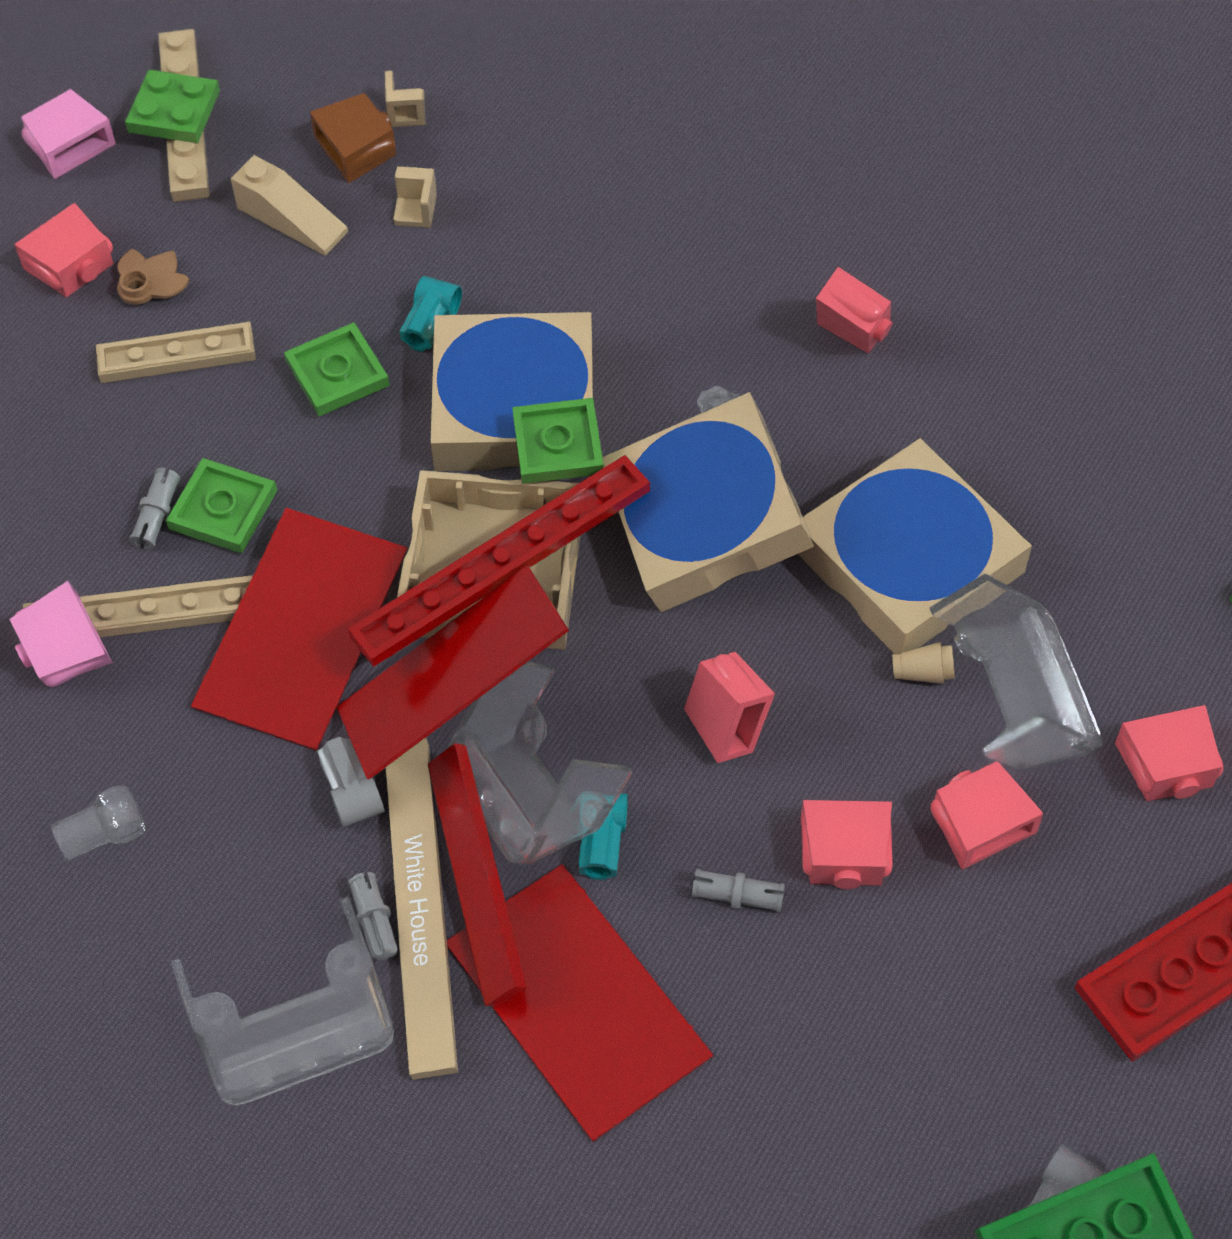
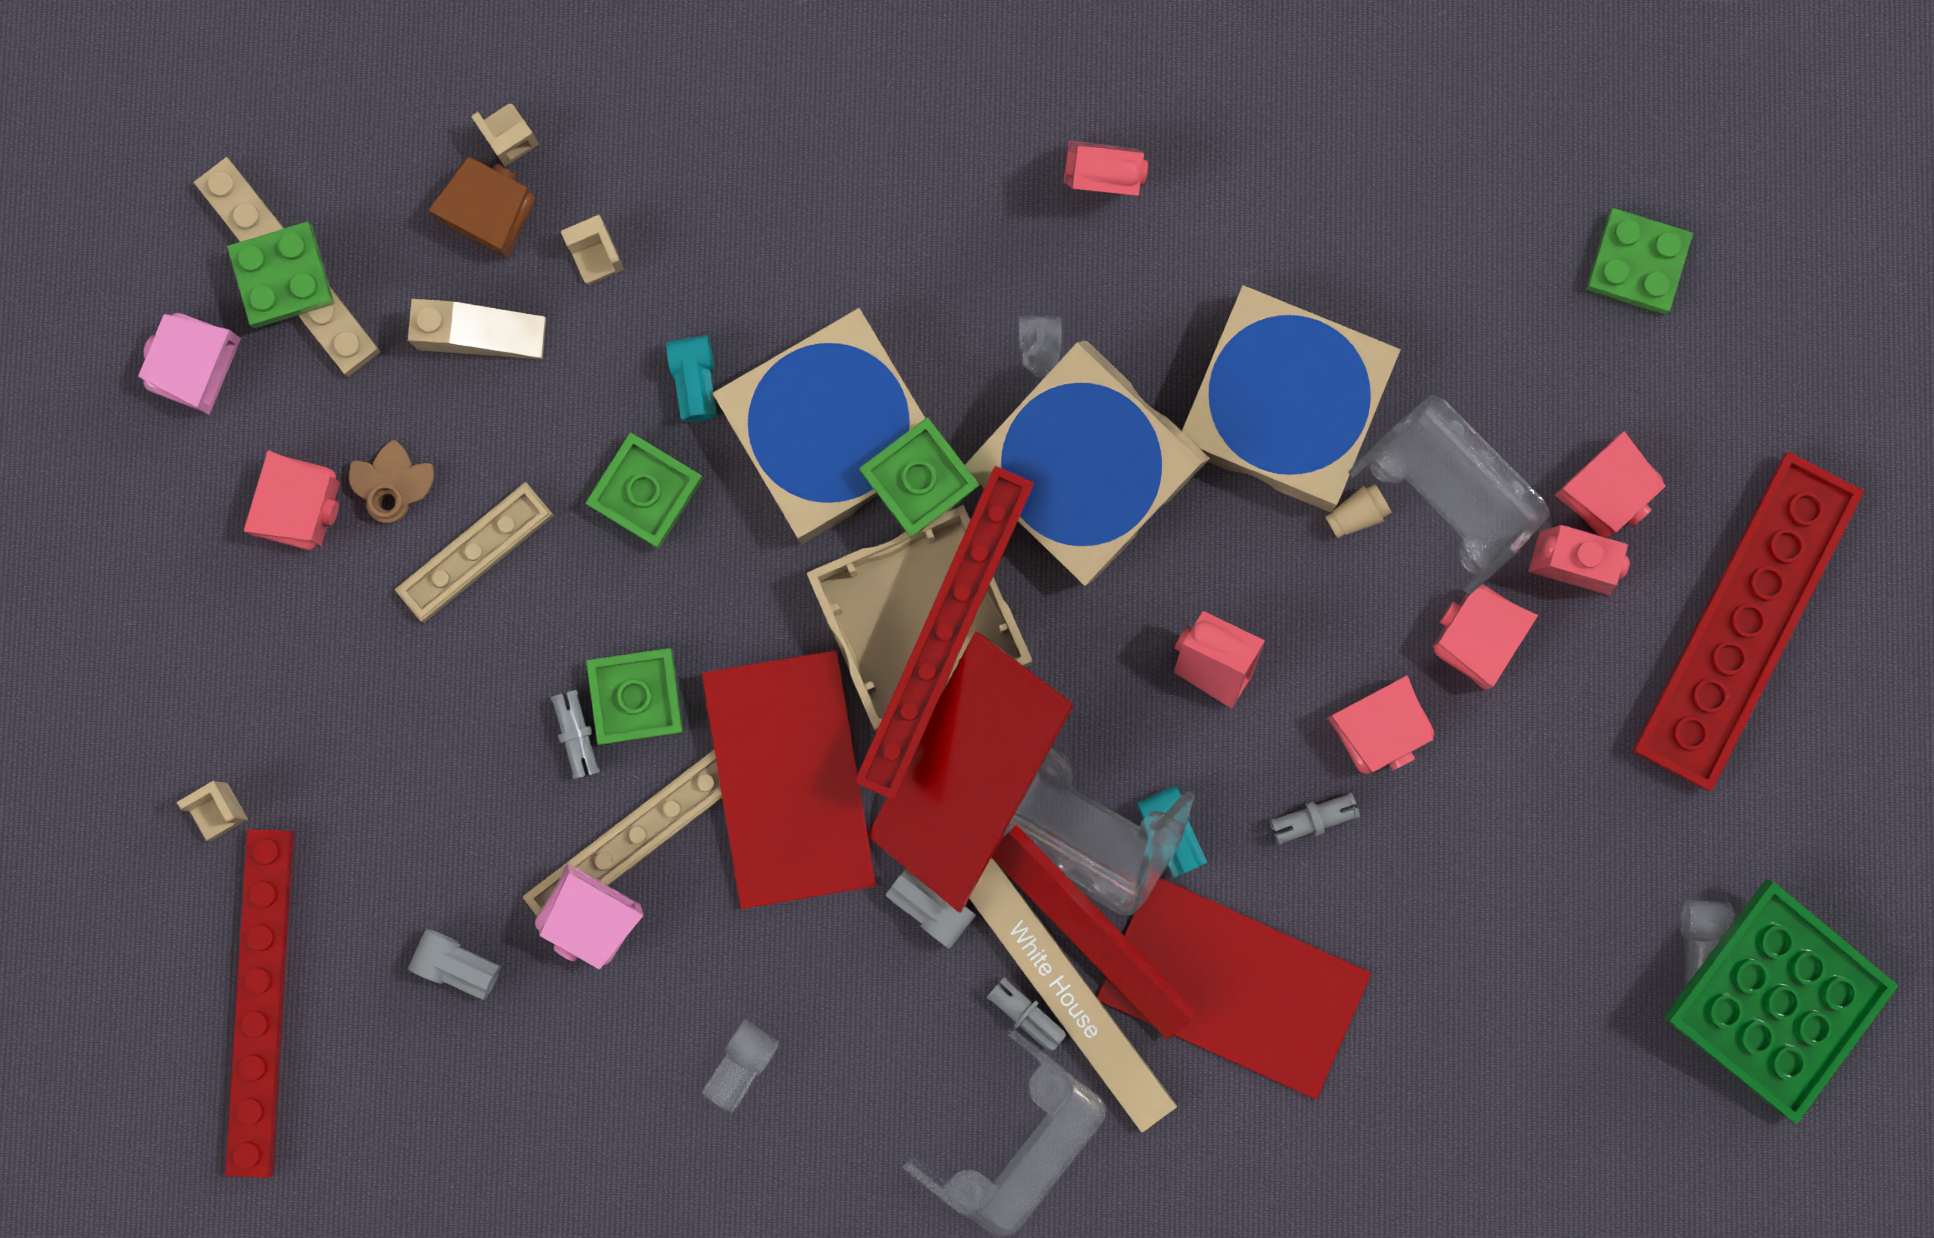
camera: 25 degrees left, 25 degrees up
(1111, 793) = (1580, 559): none -> coral torso

